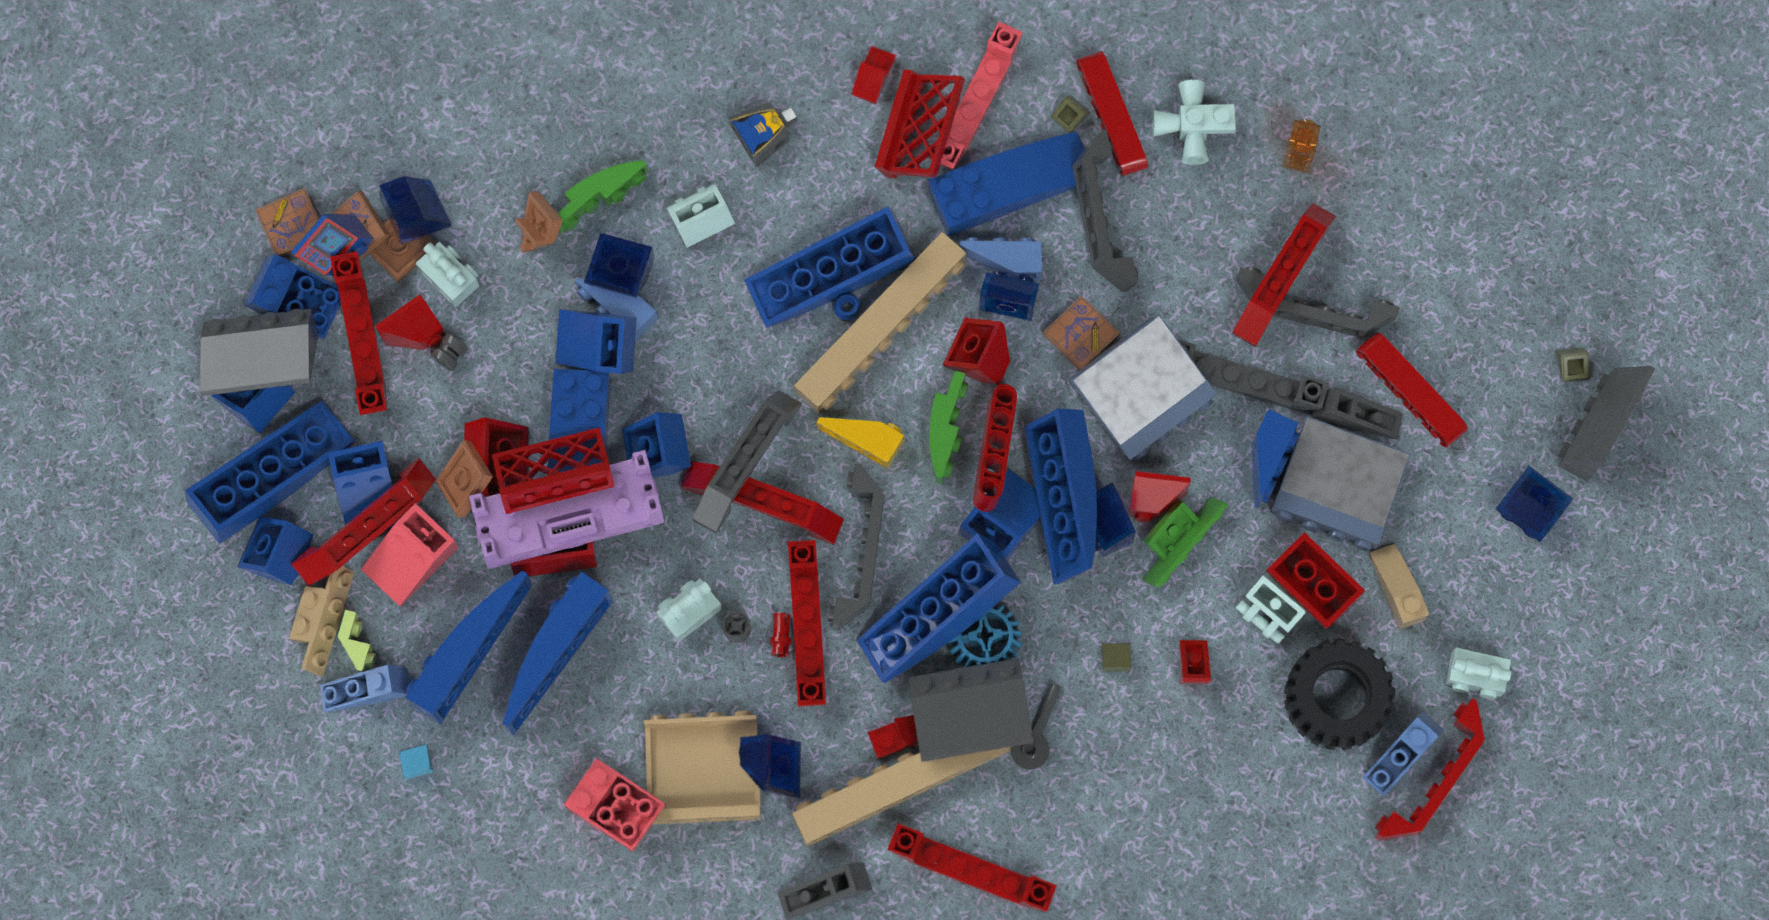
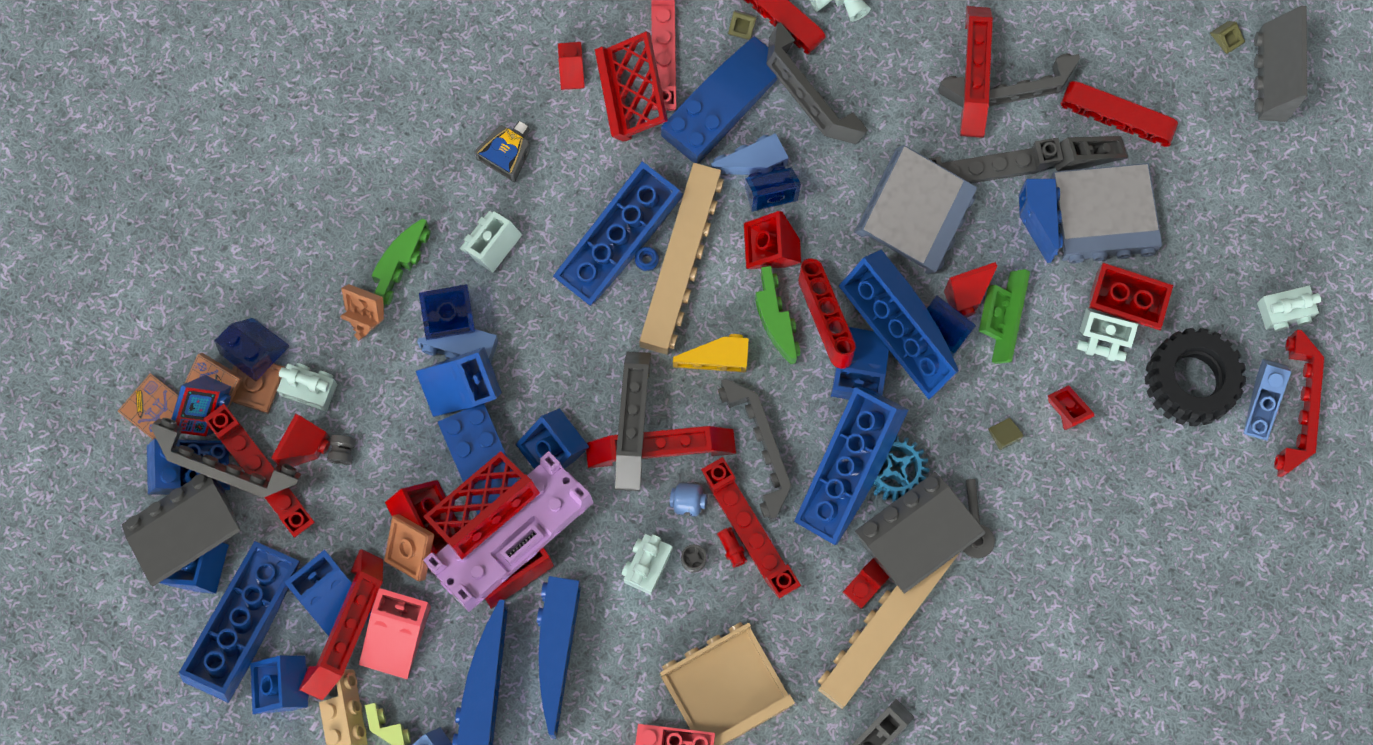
camera: 30 degrees left, 0 degrees up
(286, 257) = (167, 435): none -> dark grey slope
(761, 566) = (688, 499): none -> medium blue head
(772, 763) = (783, 656): clear blue slope -> none
(971, 870) = (985, 661): red slope -> none
(1081, 333) = (842, 192): nougat tile -> none
(1399, 587) = (1192, 270): tan slope -> none
(1534, 504) = (1259, 158): clear blue slope -> none

